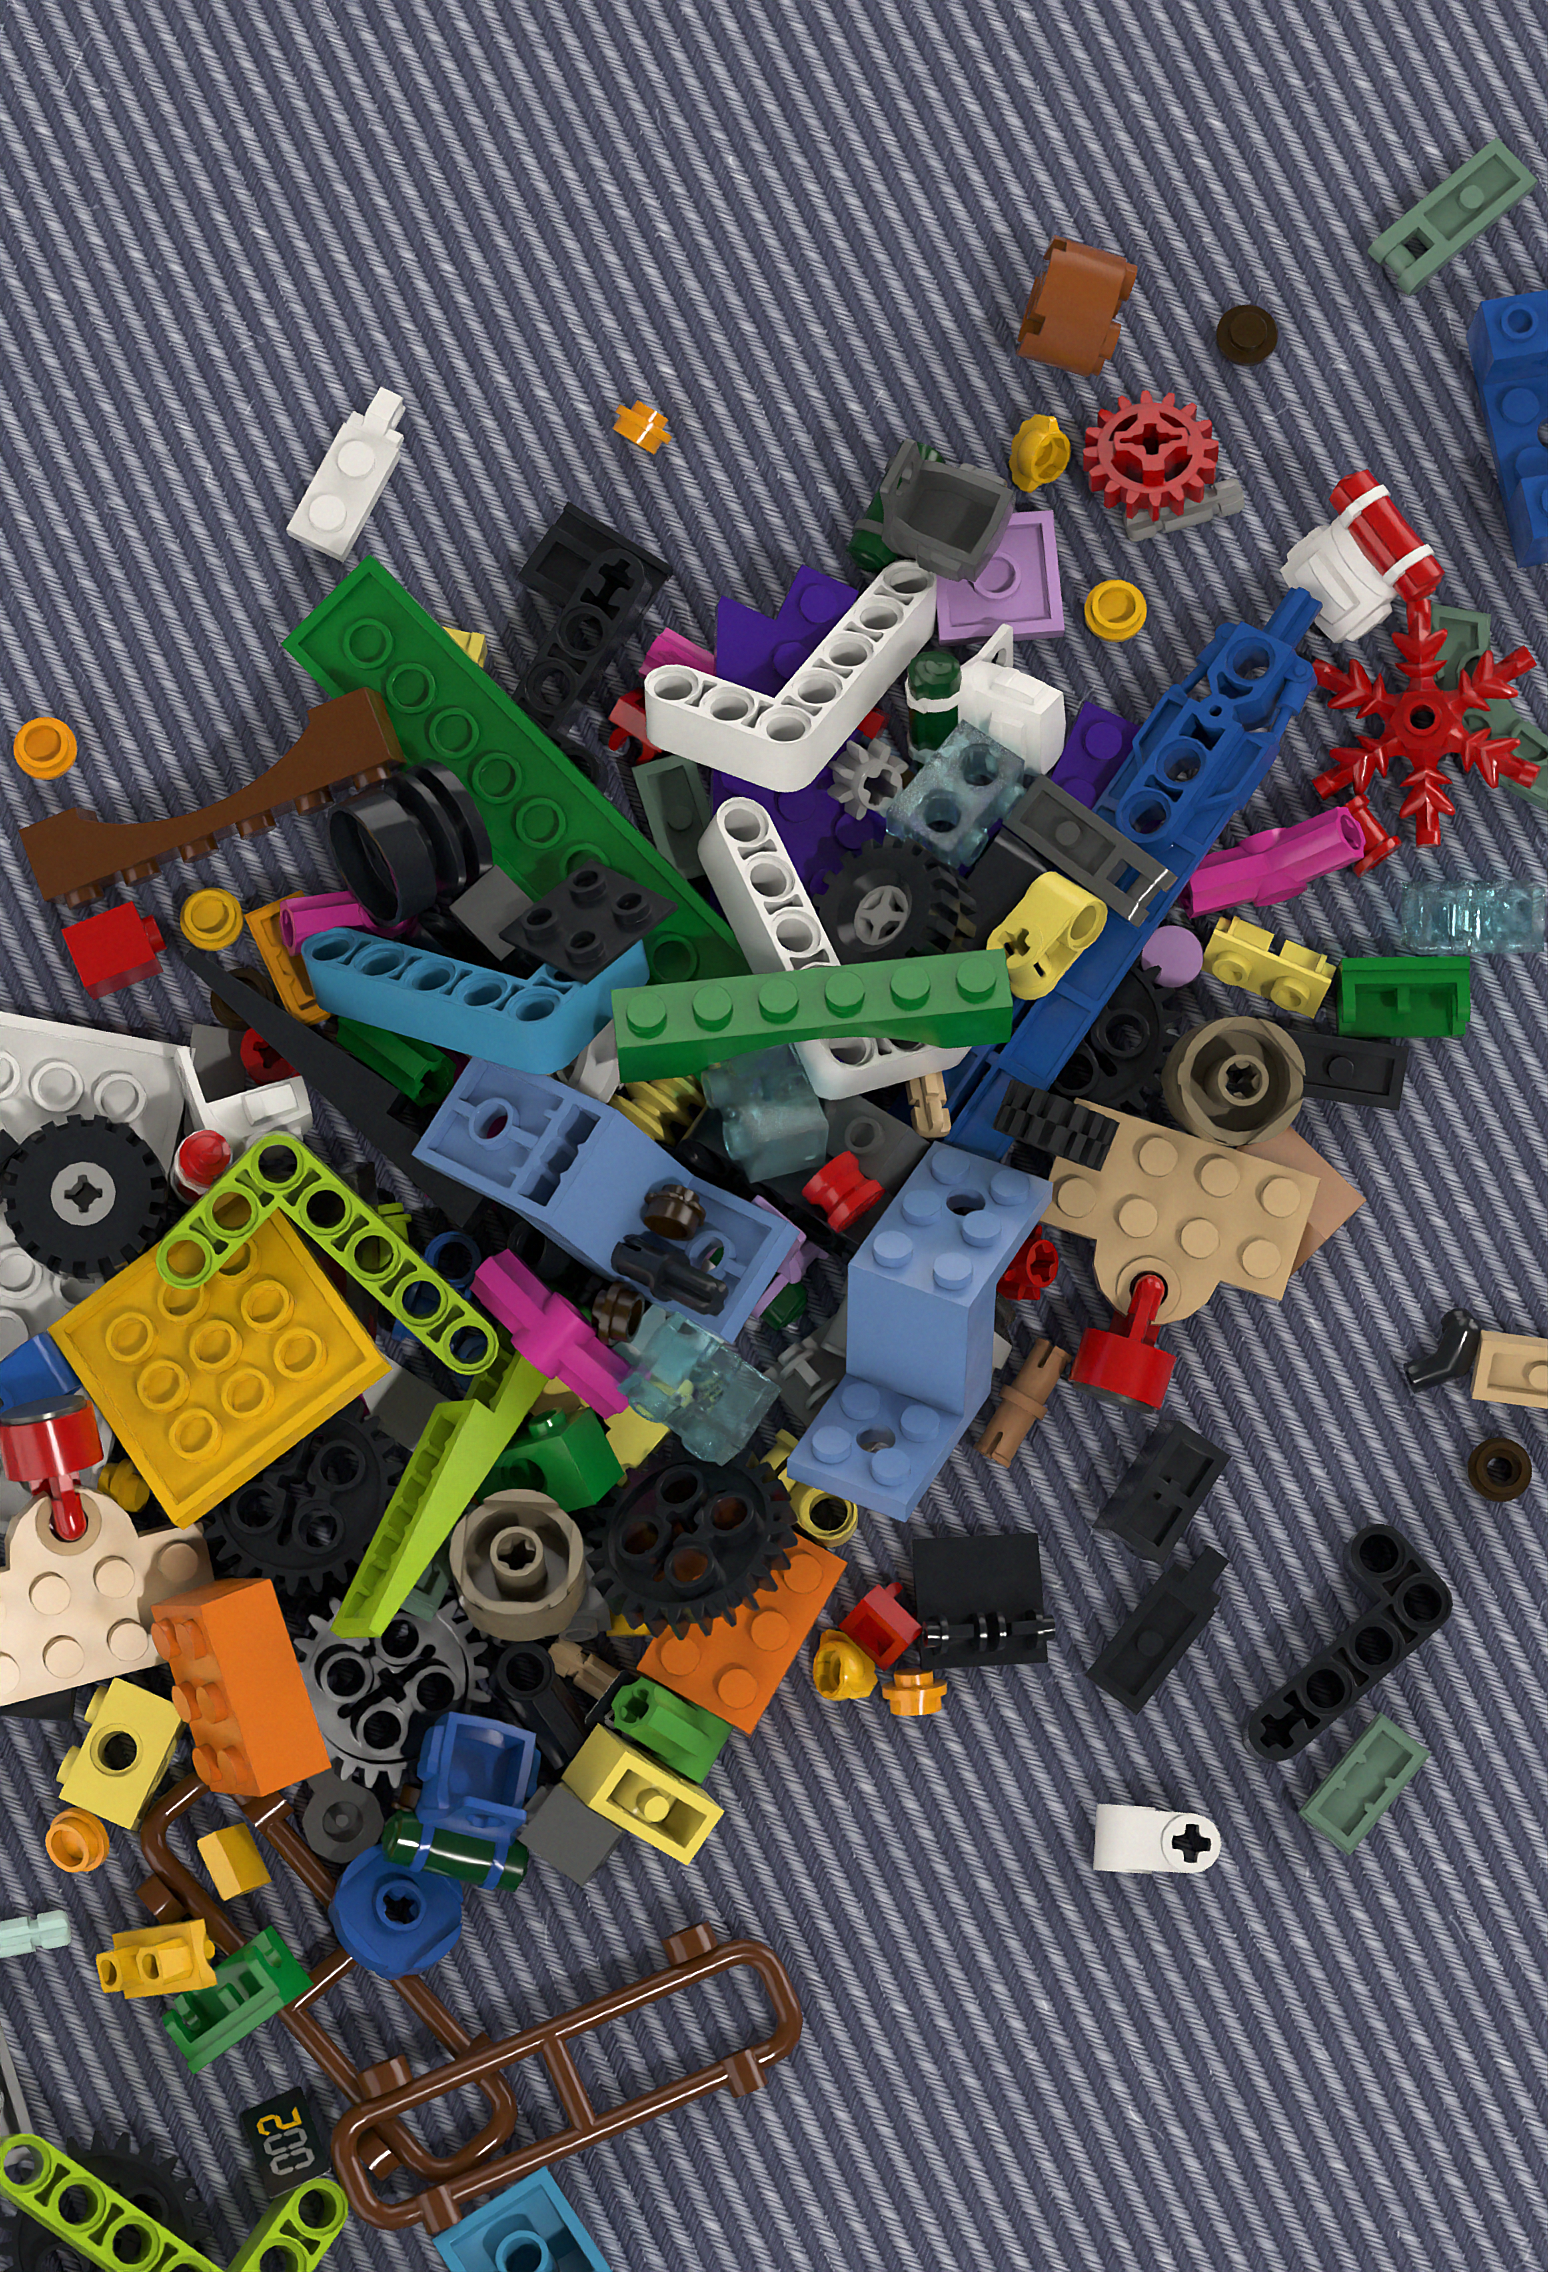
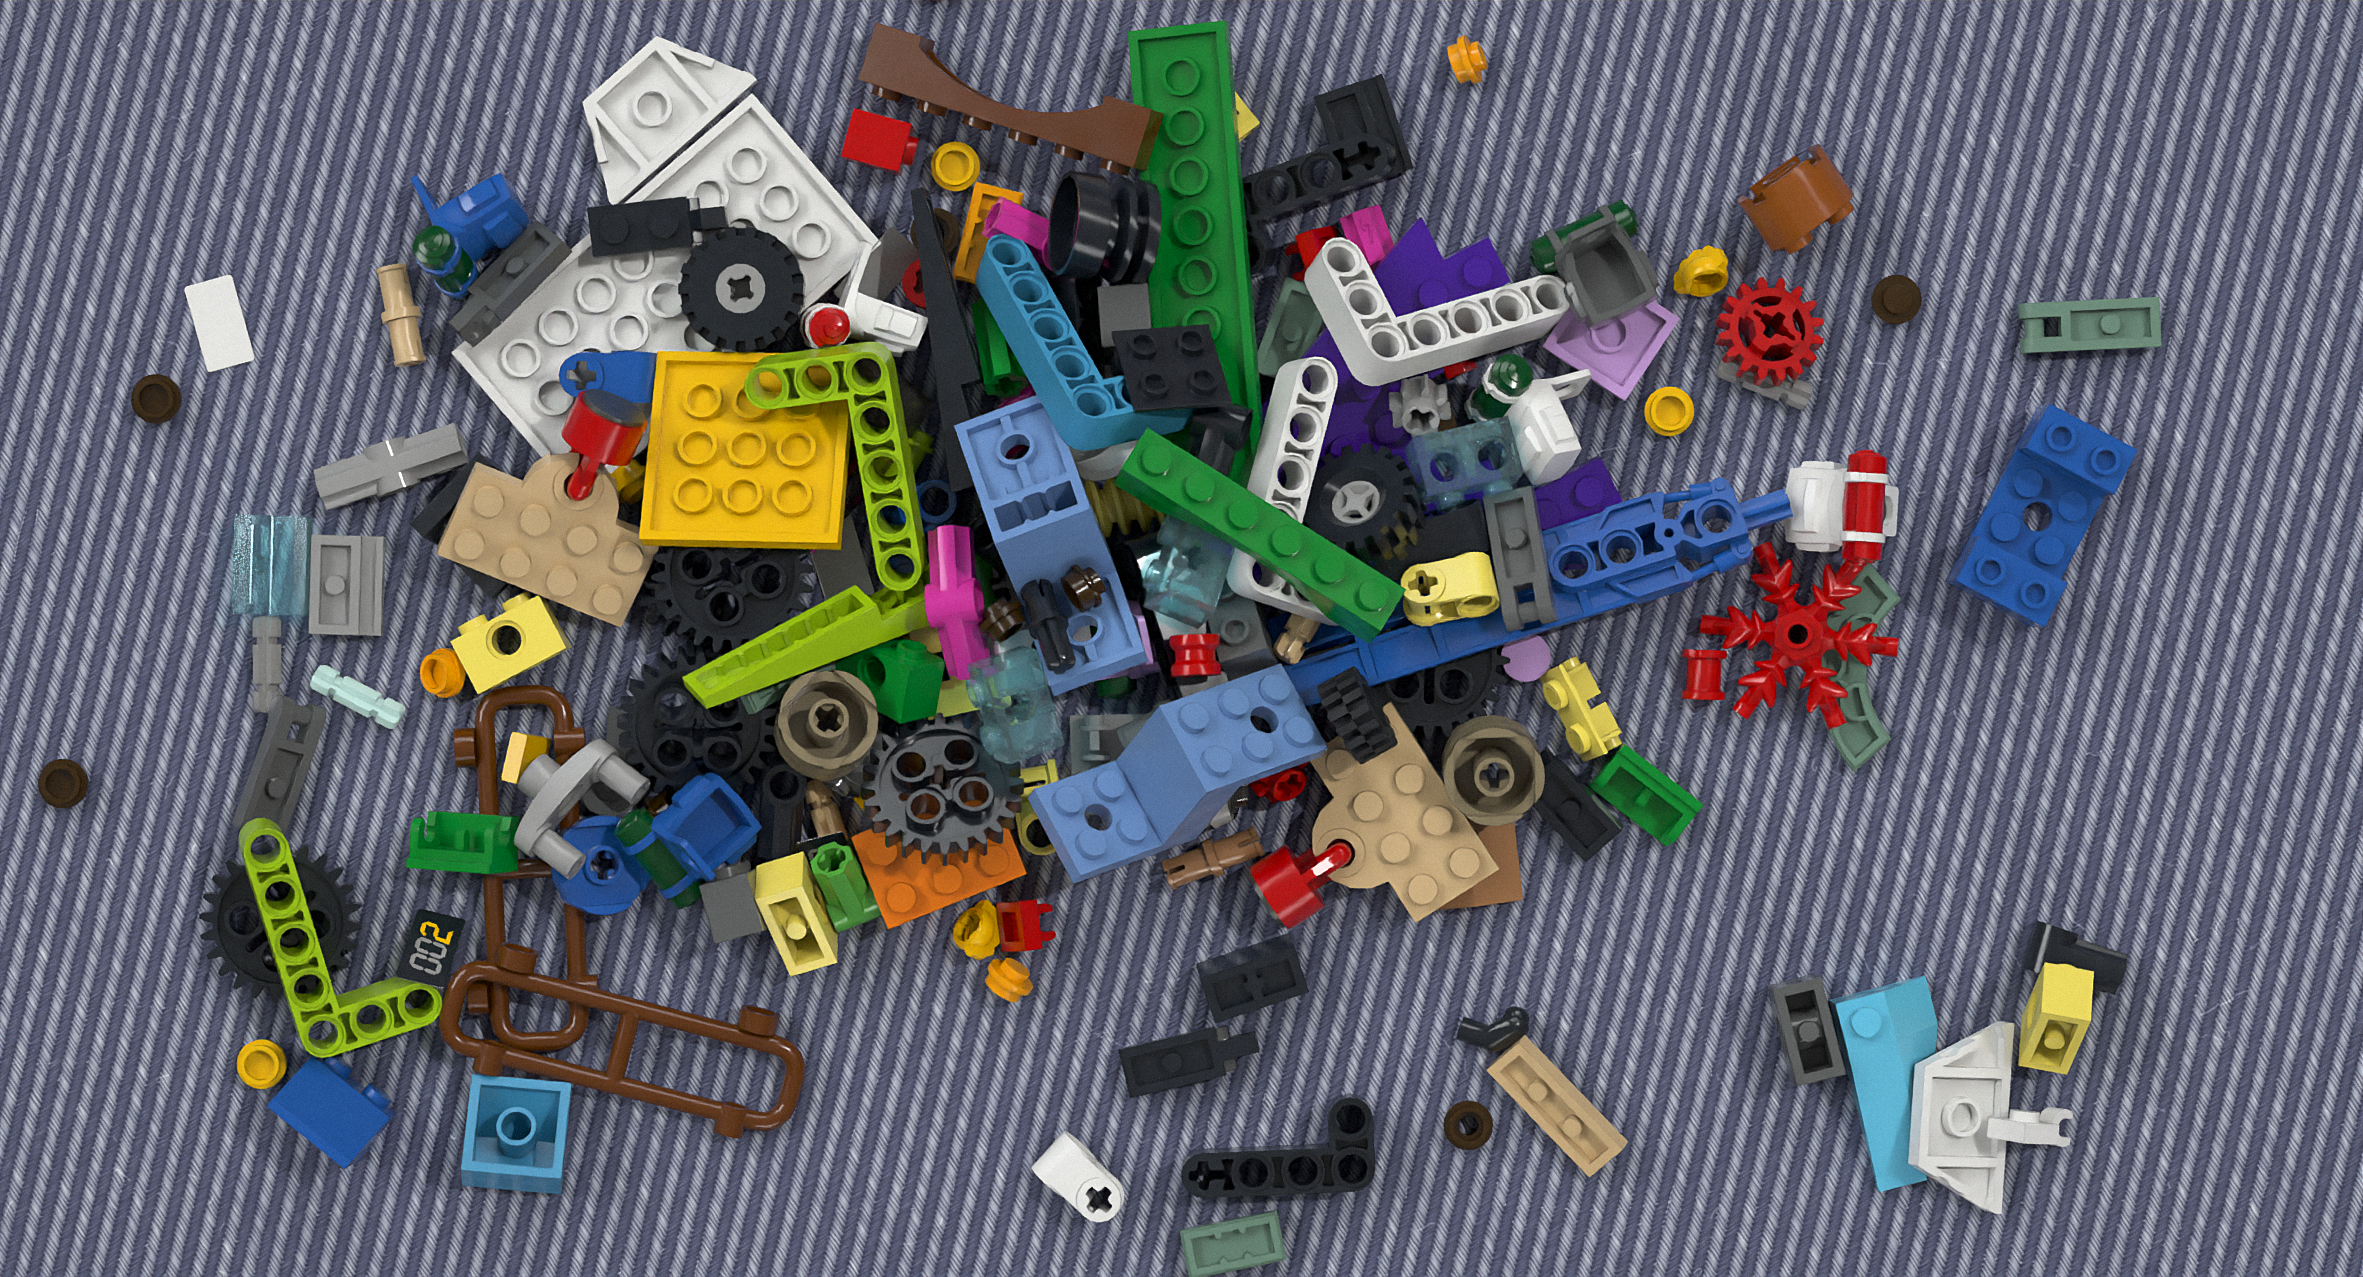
camera: 45 degrees right, 10 degrees up
(158, 1960) = (436, 783): yellow hips -> none
(239, 1687) = (605, 664): orange brick -> none
(291, 1864) = (558, 789): none -> light grey connector
(686, 947) = (1220, 434): none -> black piece
(980, 1601) = (1091, 956): black hinge -> none
(1274, 864) = (1634, 651): dark pink piece -> none
(1473, 917) = (1727, 781): clear light blue brick -> none

